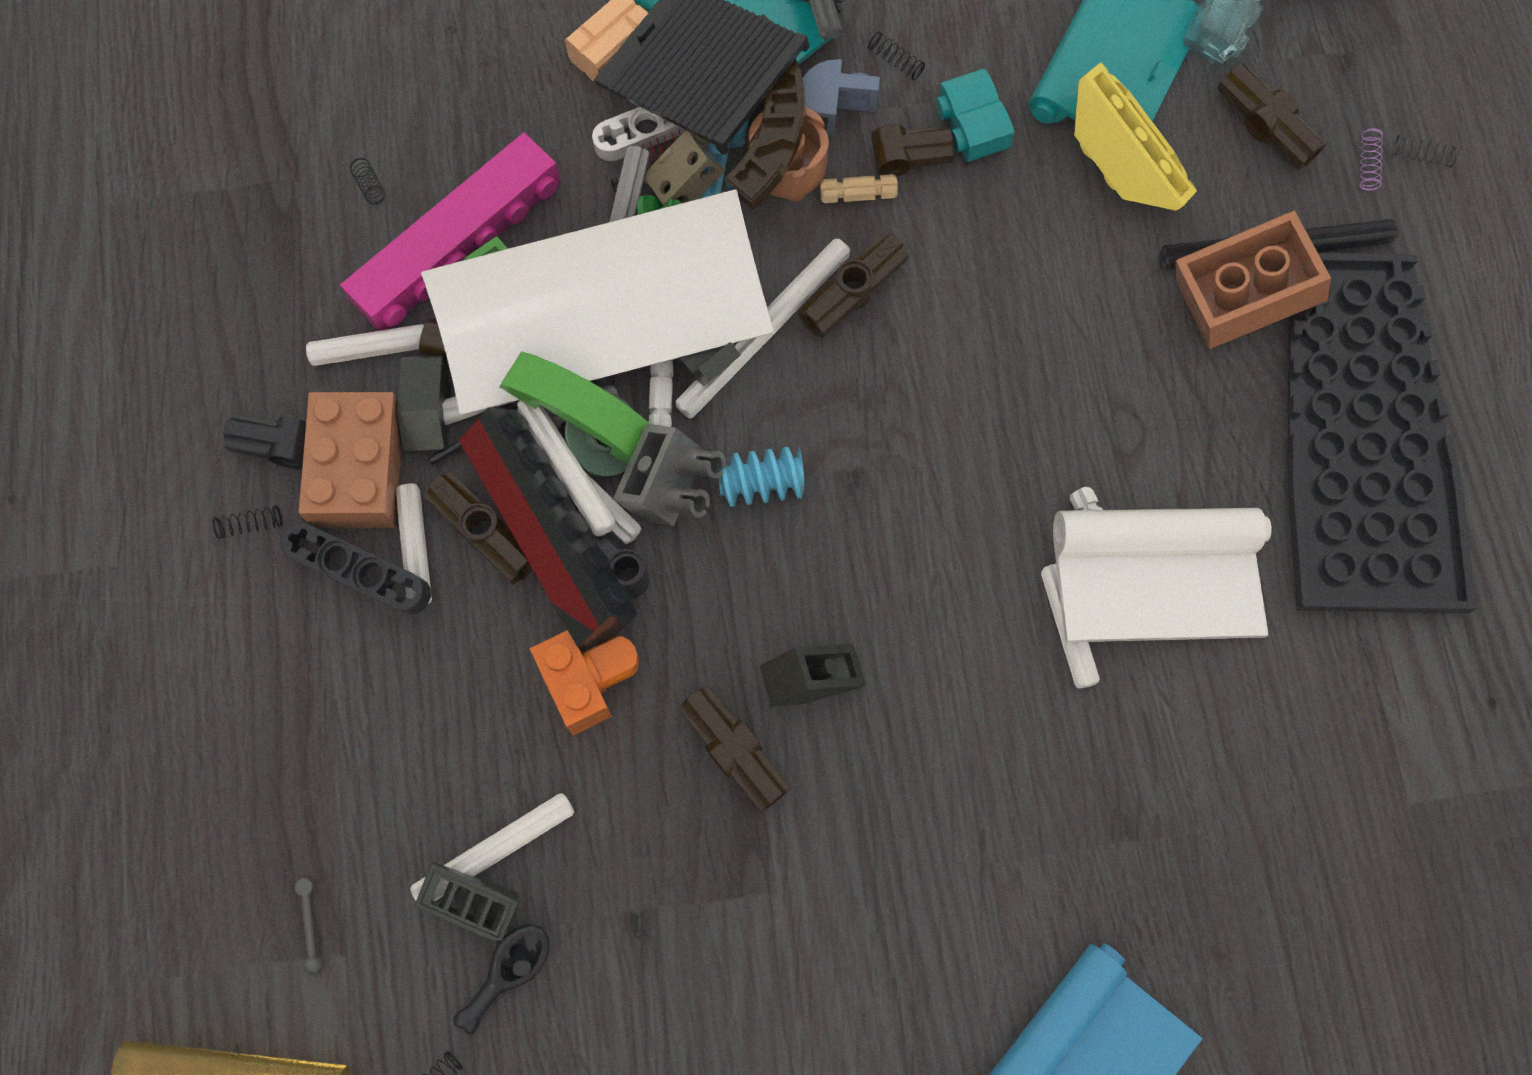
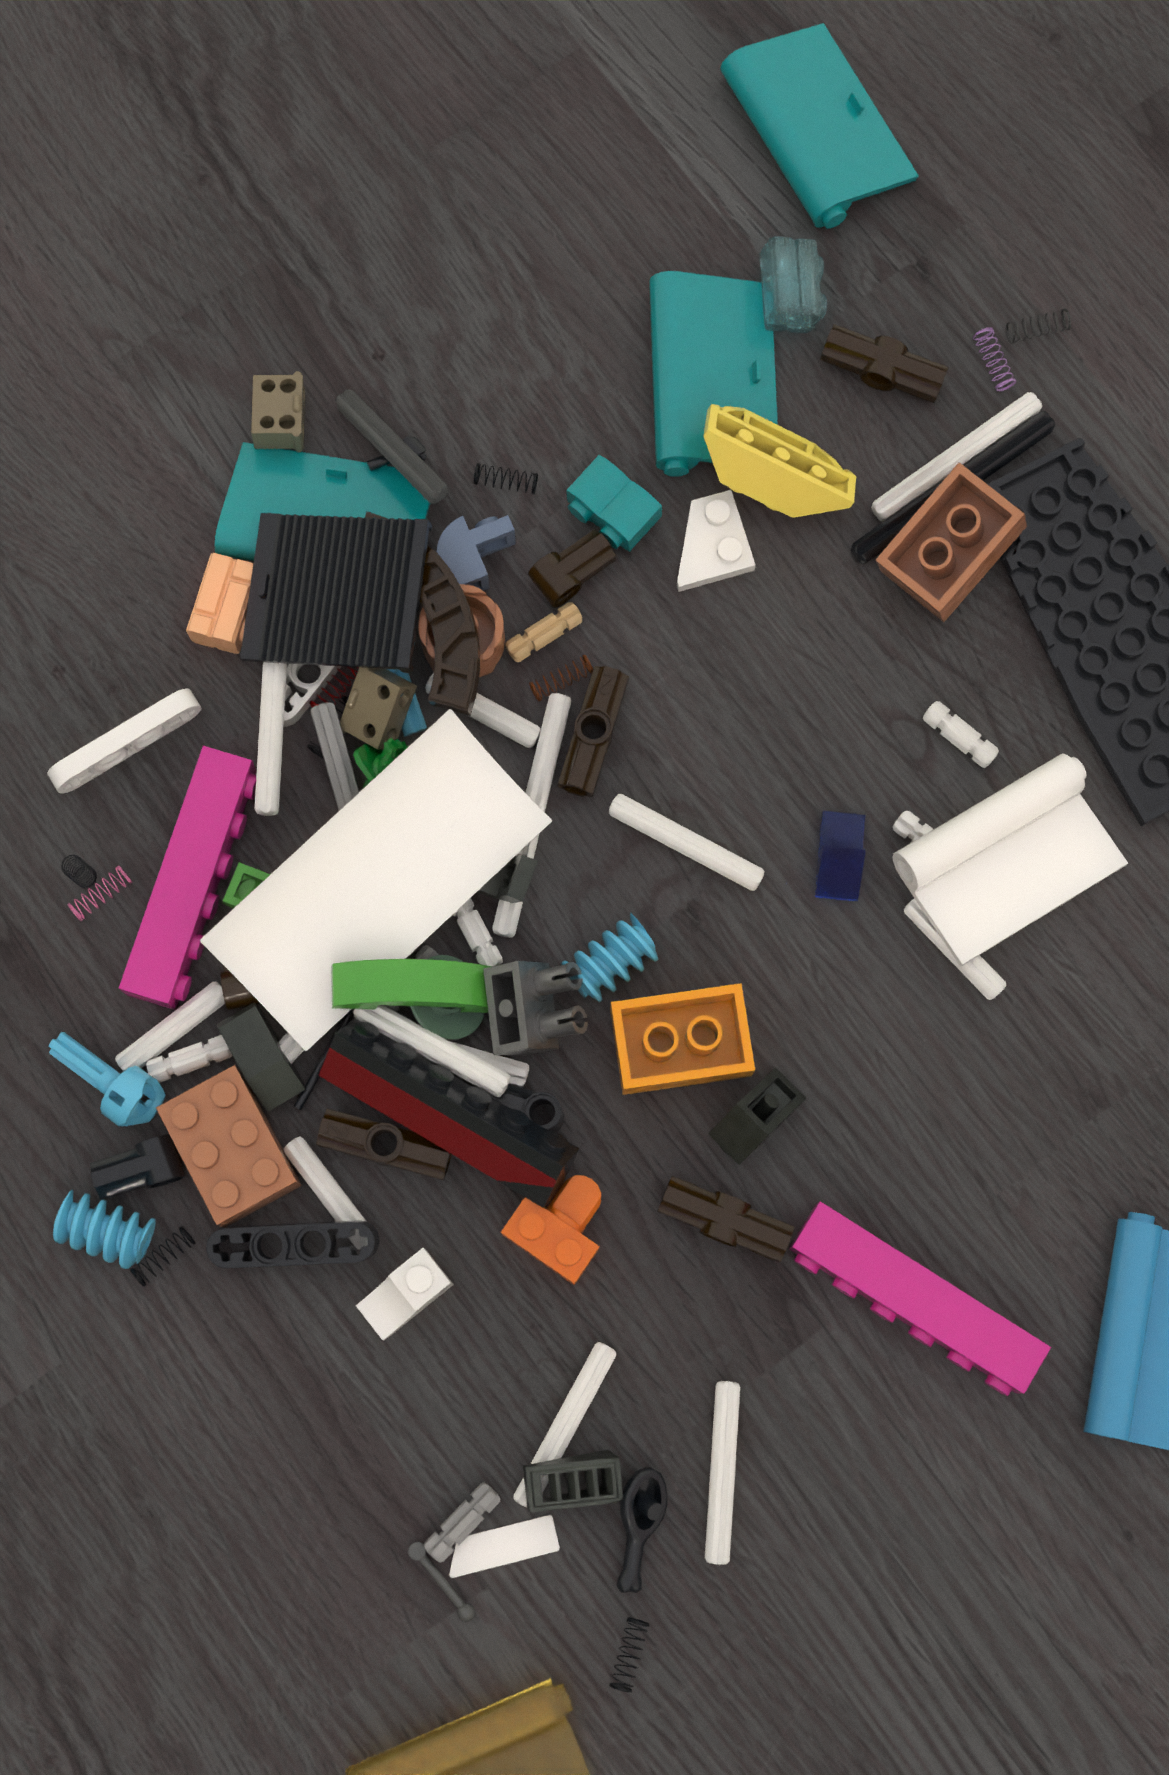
camera: 30 degrees left, 5 degrees up
(209, 471) = (102, 1231): none -> medium azure piece
(293, 367) = (121, 1091): none -> medium azure piece
(350, 221) = (78, 915): none -> bright pink piece
(355, 883) = (462, 1522): none -> light grey axle
(362, 375) = (188, 1059): none -> white axle
(380, 926) = (504, 1546): none -> white sticker
(425, 660) = (404, 1294): none -> white arch
(467, 103) = (124, 741): none -> white beam
(582, 155) = (270, 738): none -> white axle
(604, 971) = (722, 1472): none -> white axle
(780, 236) = (501, 720): none -> white axle
(781, 572) = (682, 1039): none -> light orange brick
(868, 916) = (920, 1299): none -> dark pink brick
(880, 231) = (586, 663): none -> dark orange piece
(882, 416) = (686, 842): none -> white axle
(1009, 496) = (840, 856): none -> clear blue slope
(1042, 189) = (714, 543): none -> white wing
(1174, 448) = (960, 734): none -> white axle
(1310, 218) = (962, 452): none -> white axle

